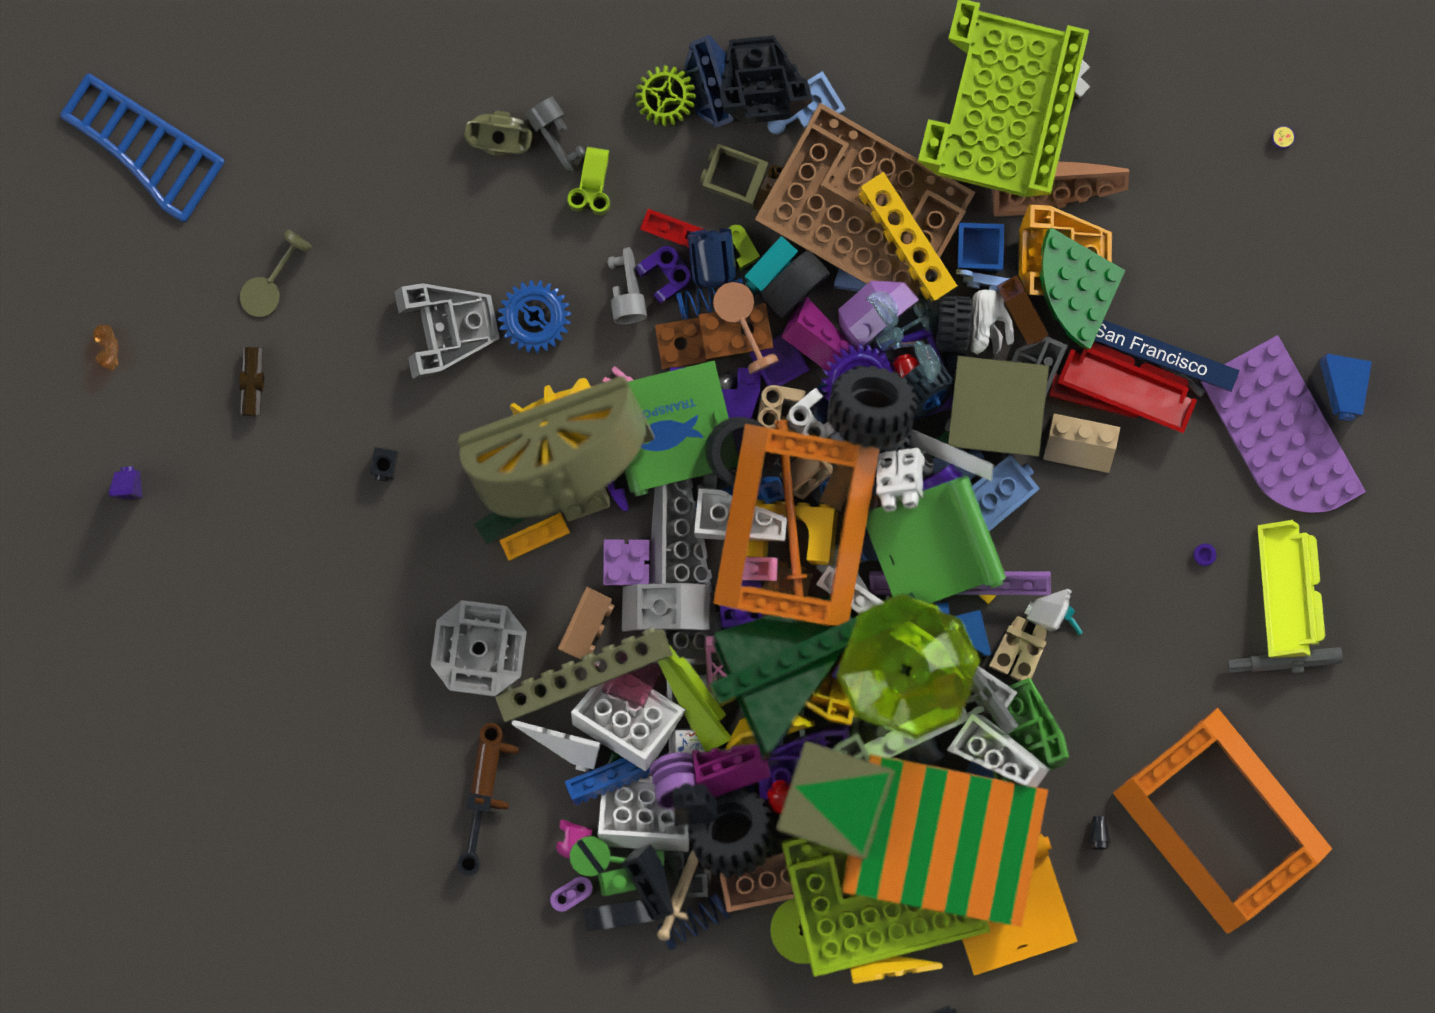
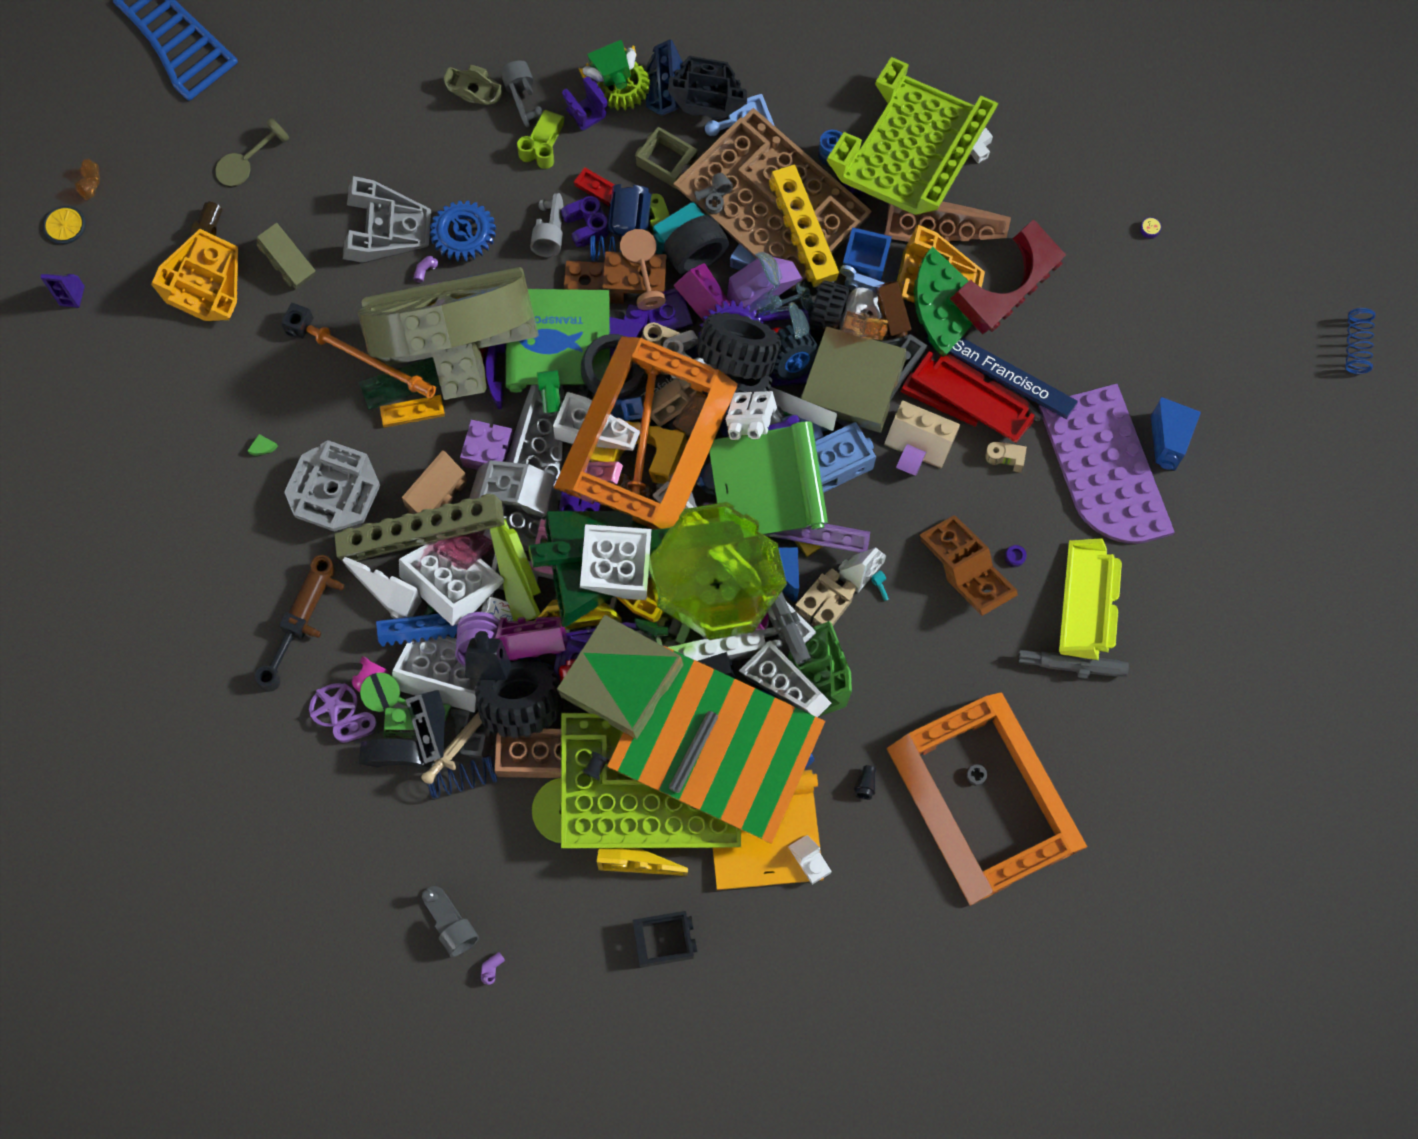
camera: 10 degrees right, 15 degrees down
(95, 405) = (64, 225): none -> yellow wheel
(270, 439) = (200, 277): none -> light orange wedge
(350, 393) = (285, 256): none -> olive wedge
(387, 613) = (262, 446): none -> bright green tile
(417, 473) = (414, 383): none -> orange bar
(501, 366) = (427, 262): none -> medium lavender arm
(542, 875) = (332, 705): none -> medium lavender wheel
(635, 123) = (594, 102): none -> dark purple piece
(649, 82) = (610, 64): none -> green torso
(678, 487) = (549, 387): none -> green piece
(802, 679) = (616, 561): none -> white slope
(806, 212) = (720, 185): none -> dark grey bar
(810, 238) = (714, 210): none -> dark grey bush
(830, 891) = (595, 765): none -> black bush
(853, 739) = (651, 628): none -> dark green bar
(914, 122) = (827, 143): none -> blue wheel
(925, 857) = (693, 752): none -> dark grey axle
(999, 347) = (865, 325): none -> clear orange brick
(1059, 925) = (809, 858): none -> white slope
(1075, 475) = (911, 459): none -> medium lavender brick
(1158, 581) = (968, 565): none -> dark orange bracket
(1169, 209) = (1039, 257): none -> dark red arch
(1175, 443) = (1006, 454): none -> tan leg
(1212, 793) = (981, 770): none -> dark grey bush

